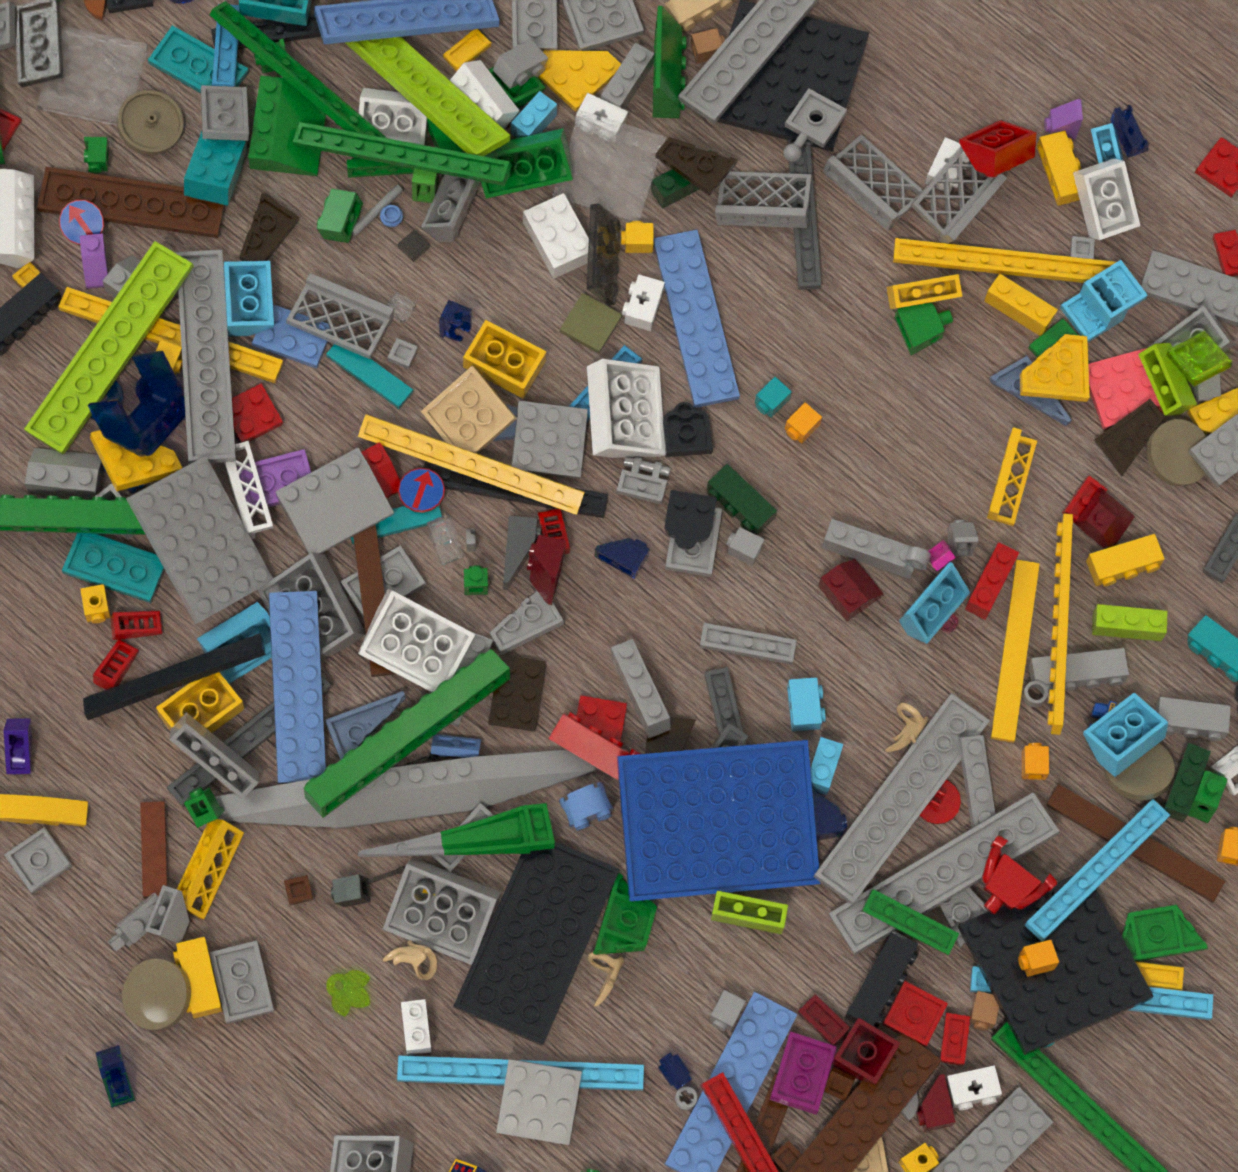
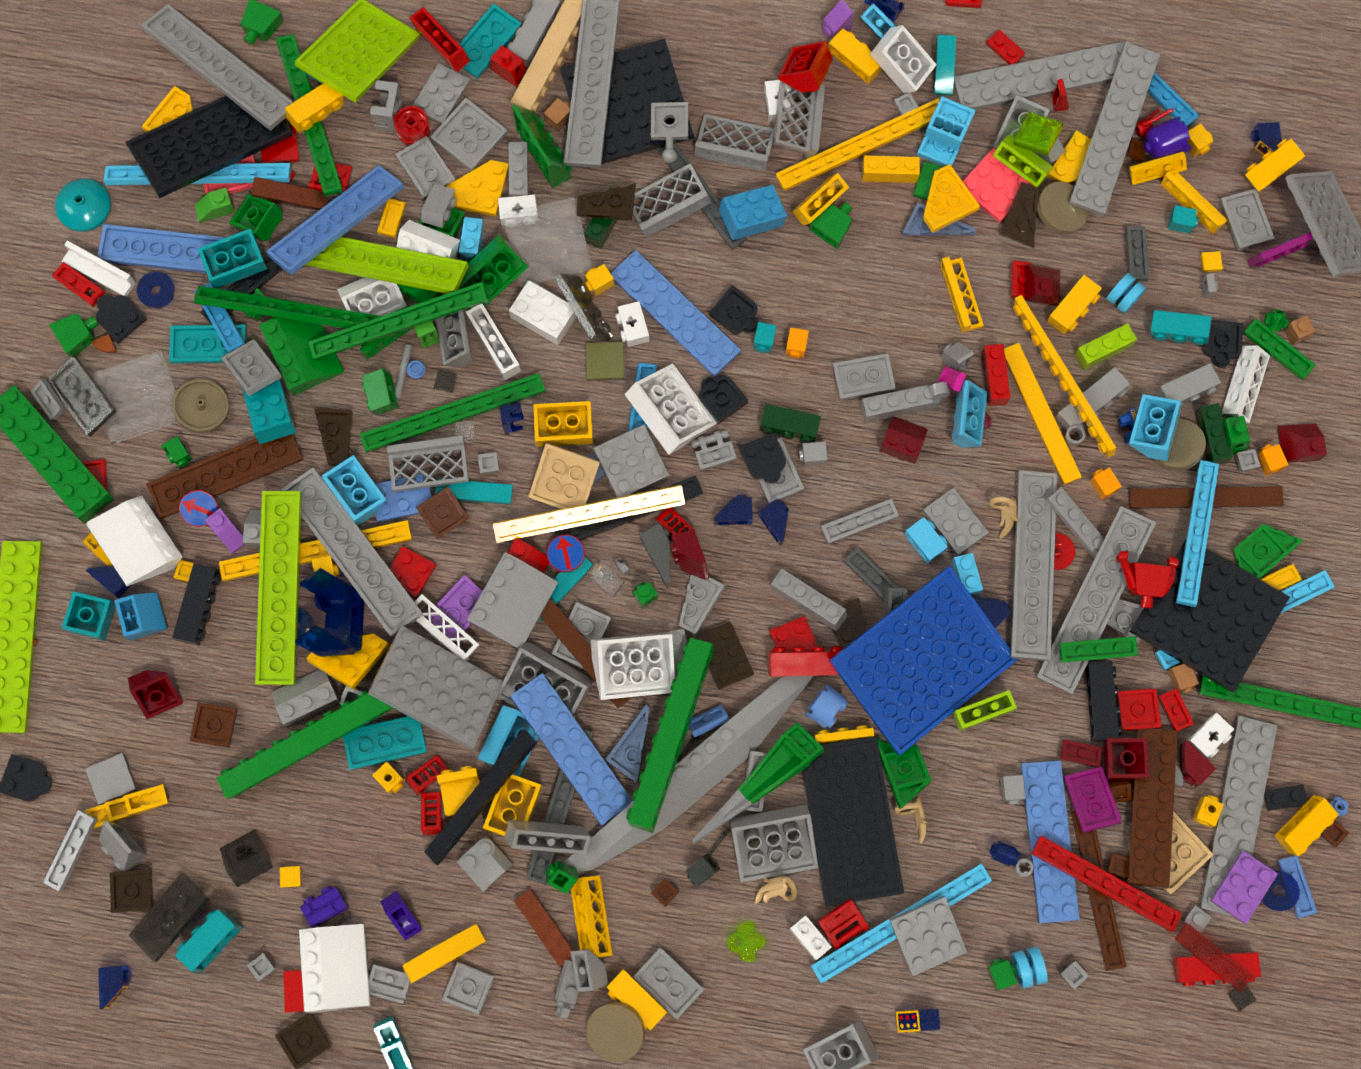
camera: 25 degrees left, 5 degrees up
(135, 747) = (484, 863): none -> light grey slope
(158, 653) = (457, 787): none -> yellow bracket
(322, 373) = (442, 512): none -> reddish brown plate
(399, 280) = (452, 413): none -> green plate
(459, 1027) = (839, 919): none -> red plate
(487, 234) = (493, 341): none -> white brick
(586, 846) = (844, 734): none -> yellow plate
(661, 588) = (775, 519): none -> clear blue slope
(759, 354) = (735, 312): none -> black plate
(843, 262) = (752, 212): none -> dark azure brick
(849, 705) = (955, 521): none -> light grey plate
(850, 500) = (864, 376): none -> light grey plate
(1038, 958) = (1201, 620): light orange brick -> none
(1151, 232) = (945, 65): none -> teal slope
(1187, 580) = (1126, 293): none -> medium azure wheel
(1205, 831) = (1247, 460): none -> light grey plate

